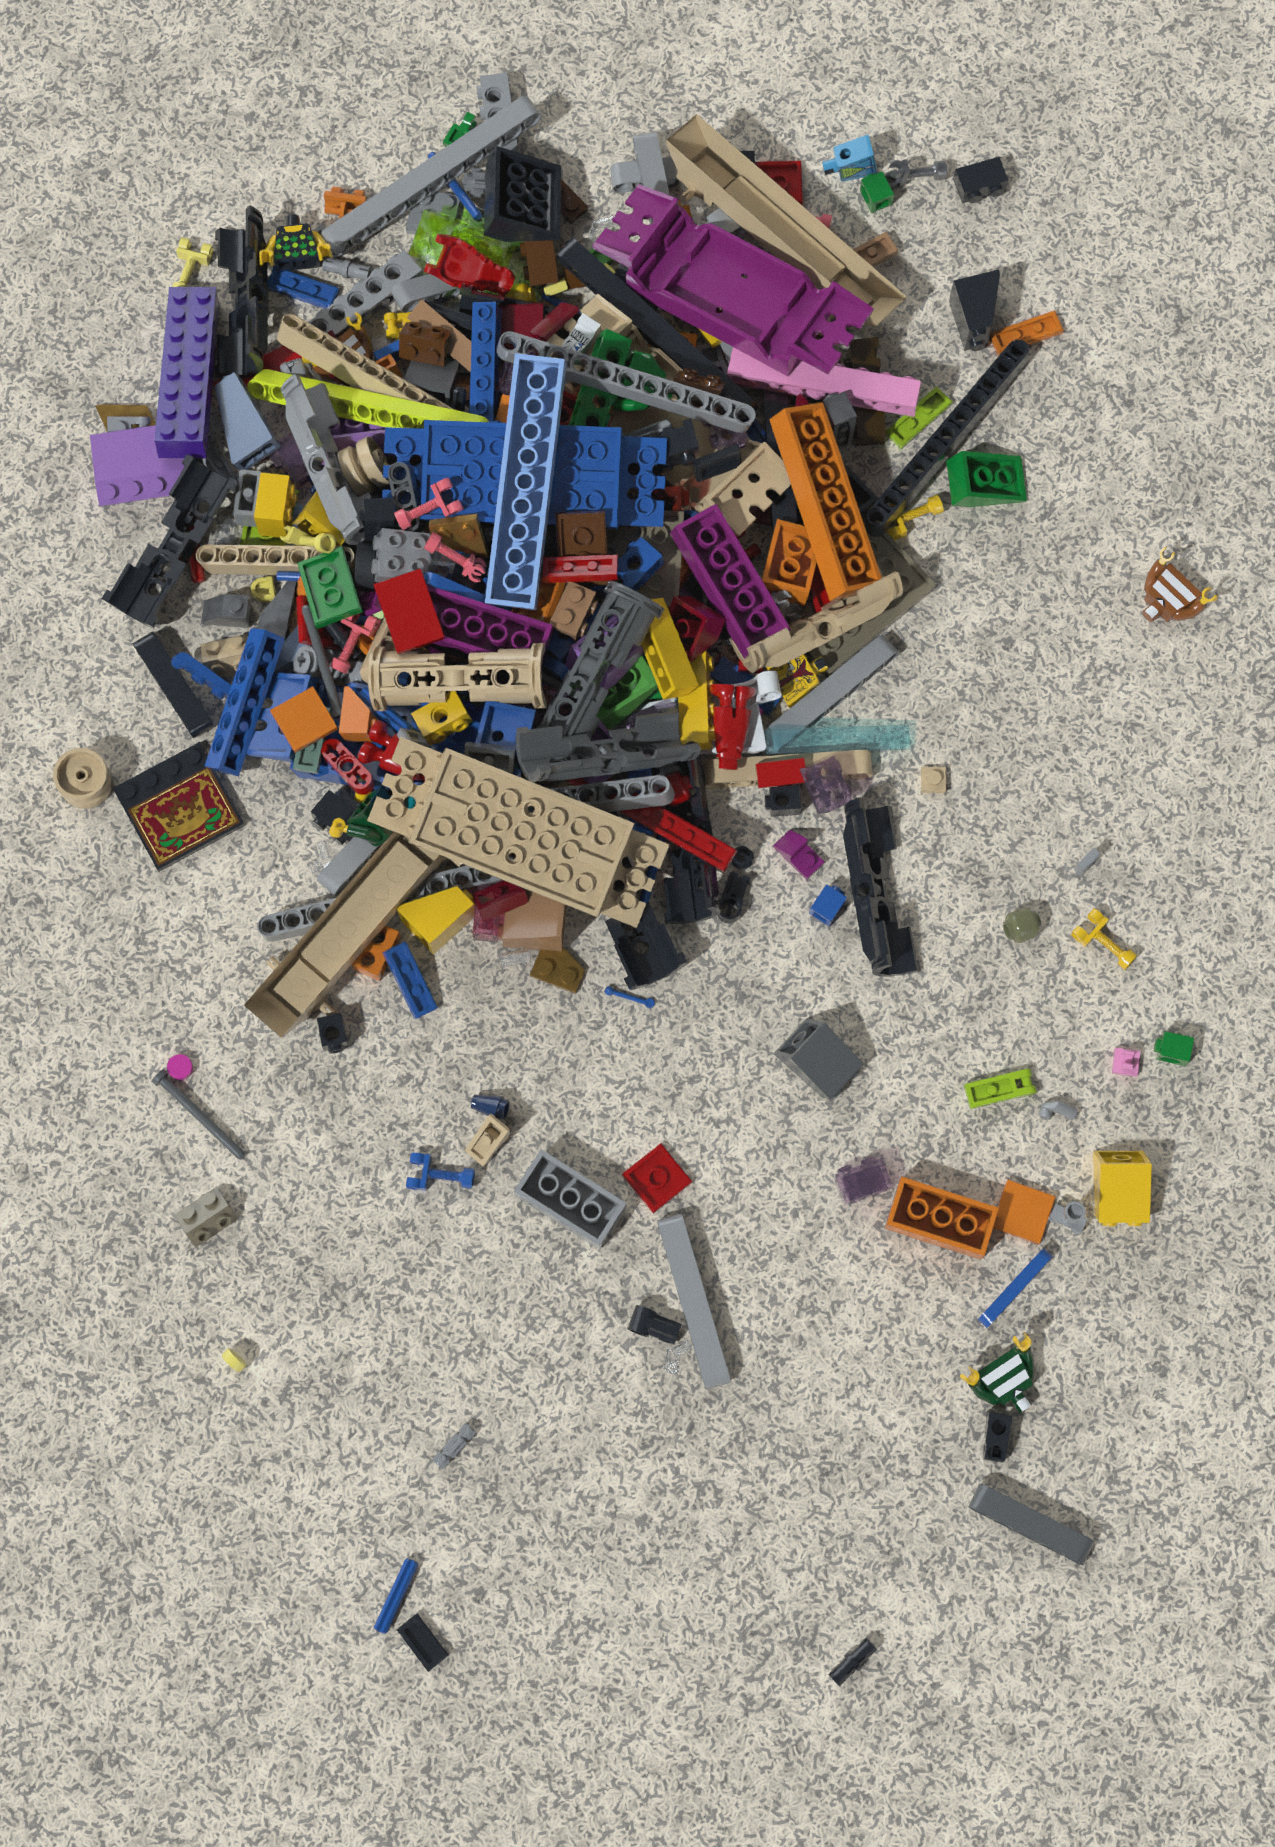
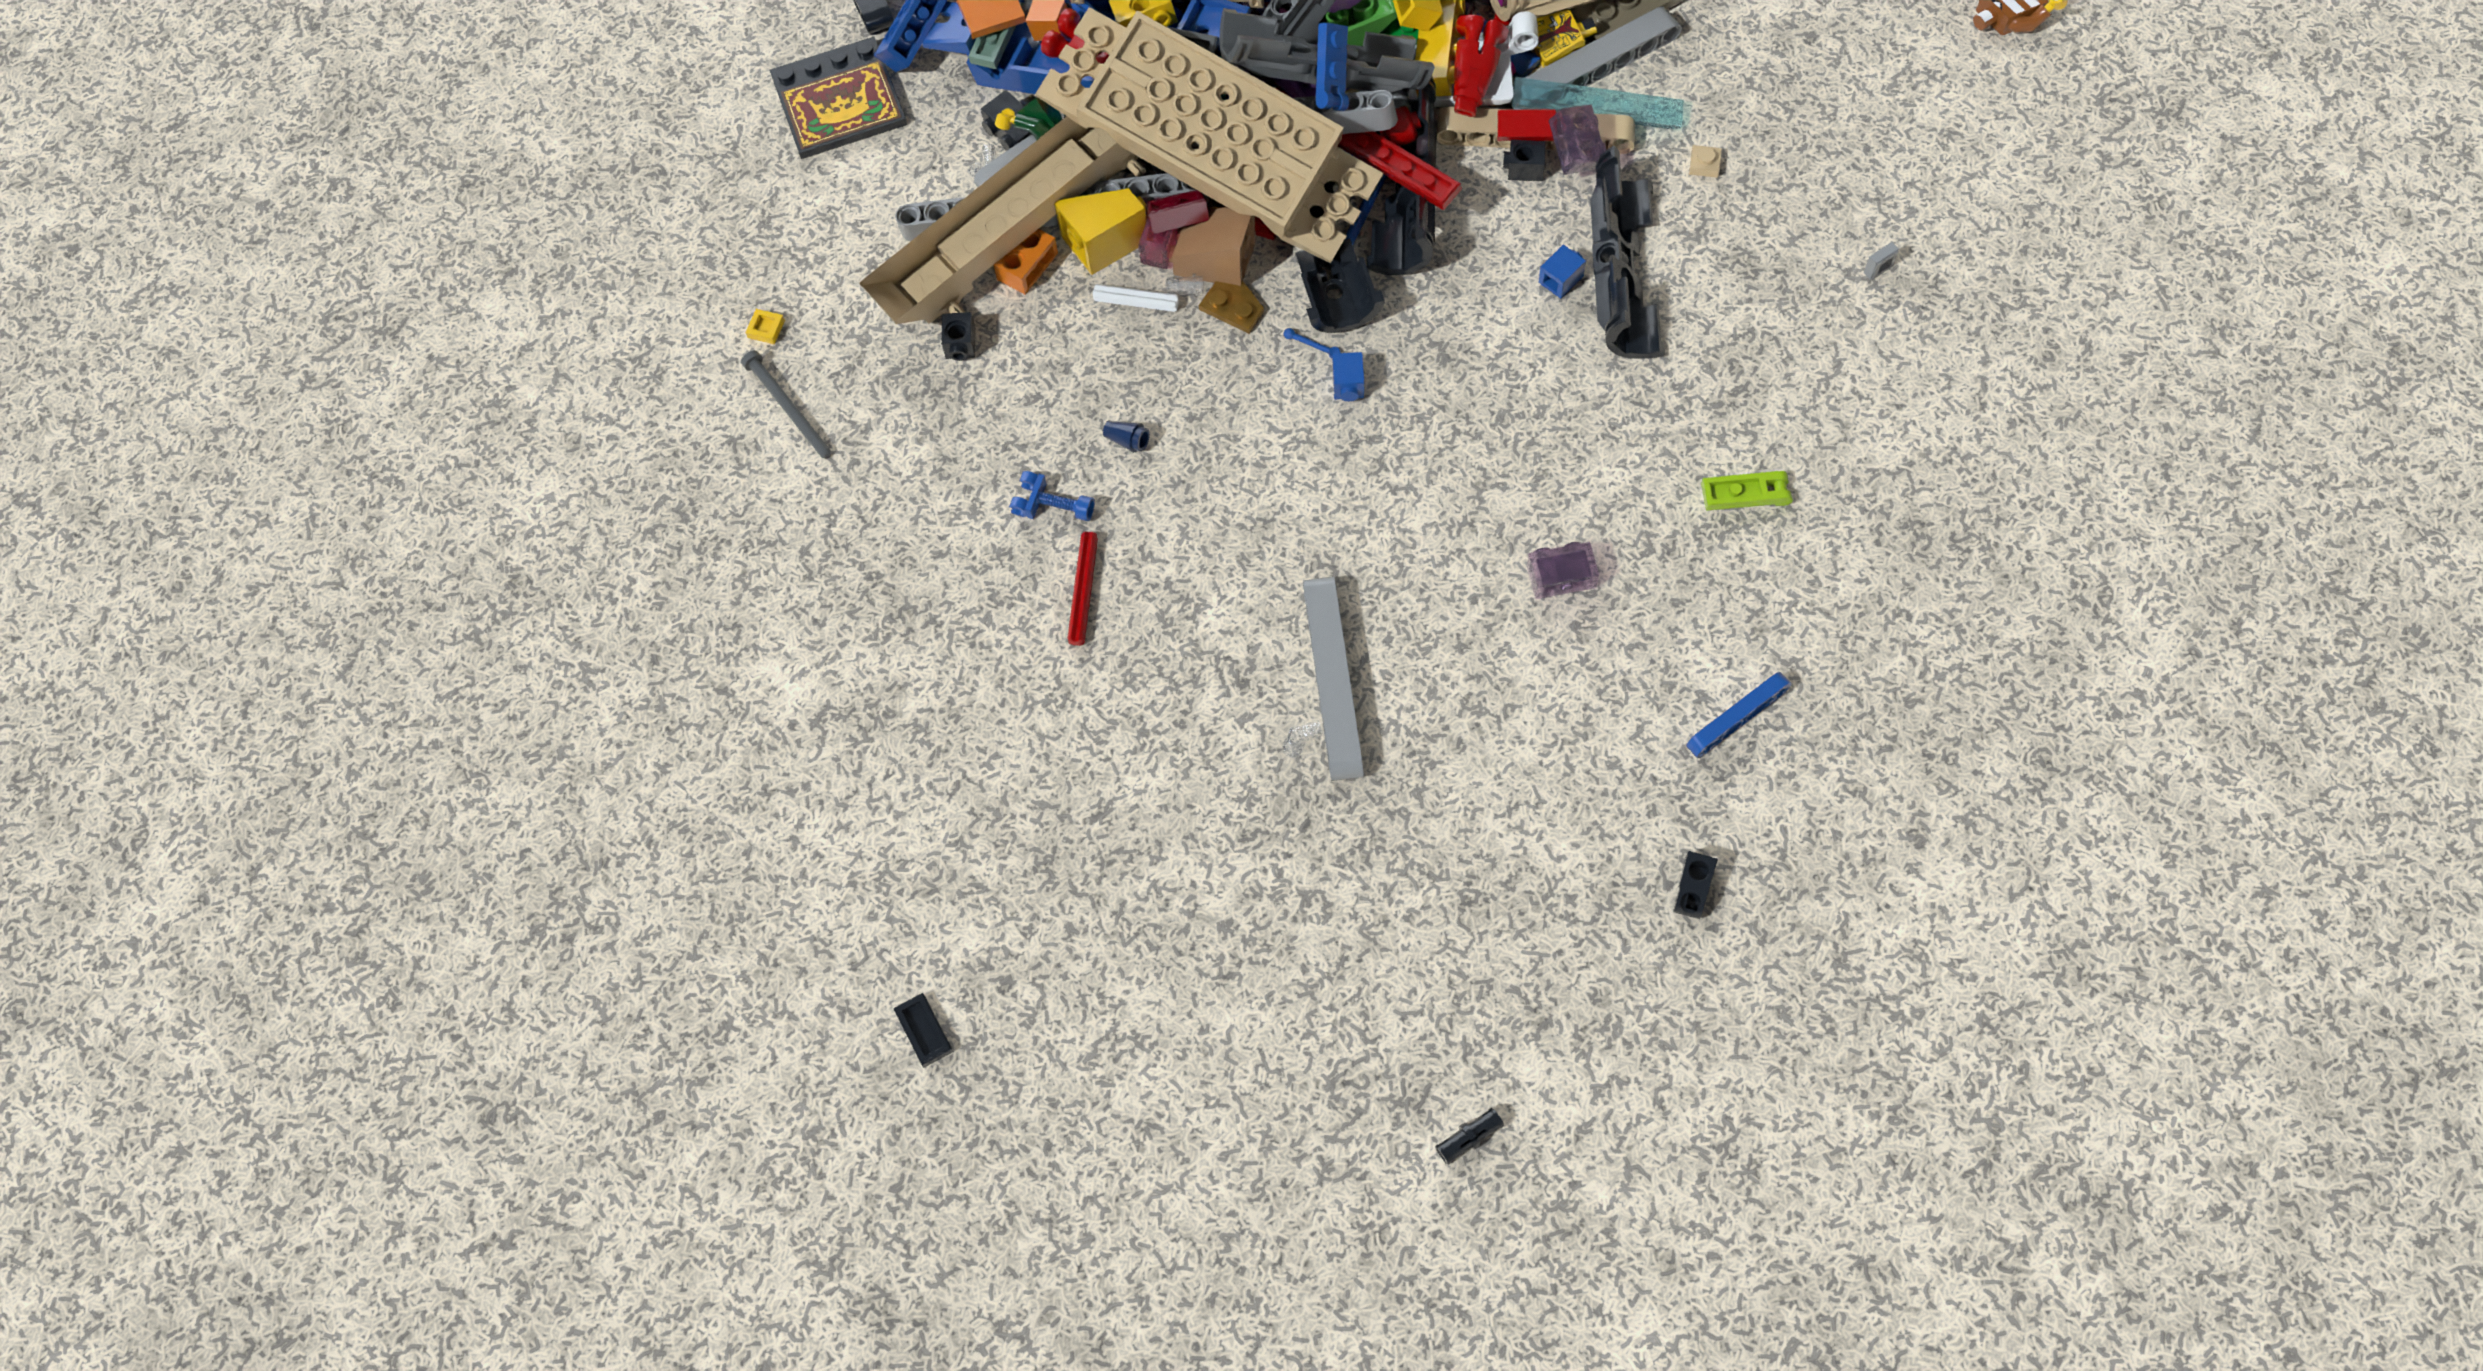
camera: 15 degrees right, 10 degrees down
(69, 773) = (737, 52): tan wheel -> none
(163, 1042) = (765, 326): none -> yellow tile
(179, 1067) = (777, 353): dark pink tile -> none
(205, 1217) = (769, 512): dark tan bracket -> none
(234, 1360) = (765, 669): light yellow tile -> none
(348, 776) = (1027, 50): red beam -> none
(395, 1596) = (901, 968): blue axle -> none
(410, 980) = (1058, 290): blue tile -> none
(454, 1446) = (1009, 803): light grey axle -> none
(461, 973) = (1136, 297): none -> white axle
(479, 1249) = (1082, 588): none -> red axle
(487, 1140) = (1115, 466): tan slope -> none
(570, 1199) = (1201, 542): light grey brick -> none
(616, 767) = (1331, 67): none -> blue plate
(648, 1323) = (1272, 694): black piece -> none
(657, 1178) = (1311, 538): red tile -> none
(665, 1028) = (1348, 376): none -> blue brick
(733, 894) = (1451, 250): black piece -> none
(748, 857) = (1467, 207): black plate -> none
(796, 852) = (1536, 219): magenta slope -> none
(819, 1058) = (1530, 429): dark grey slope -> none
(941, 1218) = (1655, 620): orange brick -> none
(1006, 1377) = (1714, 815): torso -> none
(1021, 925) = (1794, 317): olive head -> none
(1023, 1212) = (1758, 632): orange tile -> none
(1031, 1524) = (1728, 998): dark grey beam -> none
(1059, 1107) = (1813, 519): light grey arm -> none
(1071, 1216) = (1825, 621): light grey bar -> none
(1096, 917) = (1889, 327): yellow bar -> none
(1122, 1187) = (1889, 617): yellow slope -> none
(1125, 1062) = (1907, 481): bright pink tile -> none
(1174, 1048) = (1969, 471): green brick -> none

